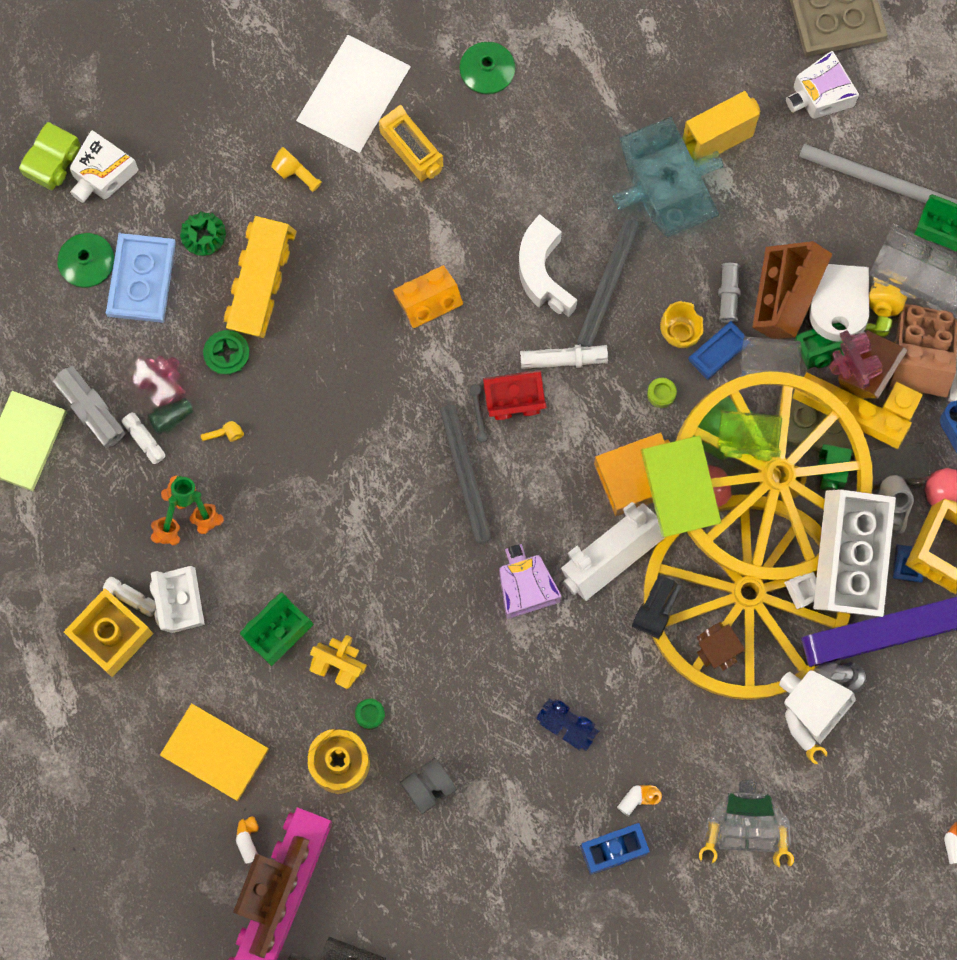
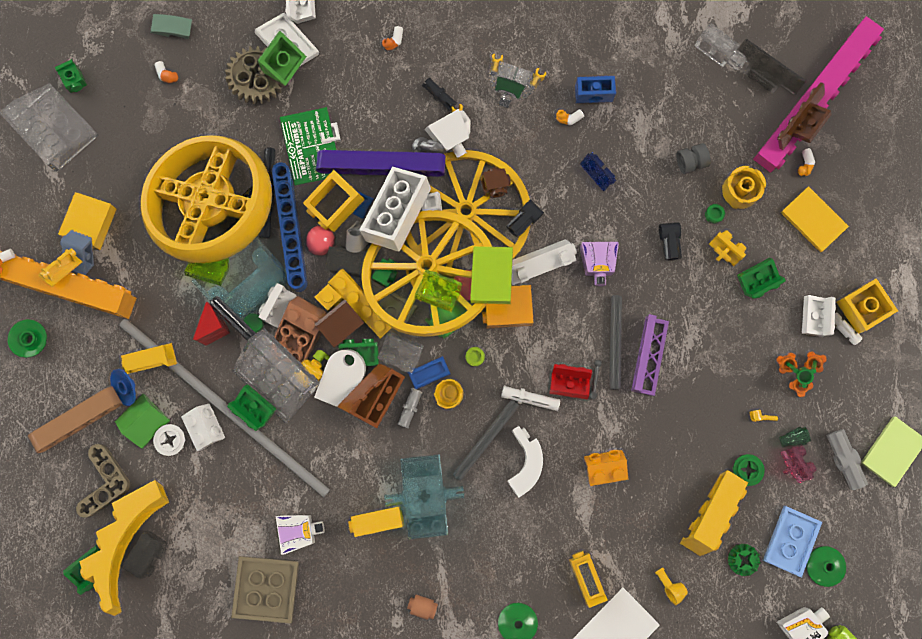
camera: 165 degrees left, 5 degrees up
(143, 438) = (815, 428): white axle -> none
(420, 475) = (644, 353): none -> medium lavender fence
(428, 653) = (670, 235): none -> black piece
(621, 46) = (422, 607): none -> nougat brick
(852, 347) = (348, 336): clear pink hips -> none
(853, 770) = (439, 94): none -> black pin

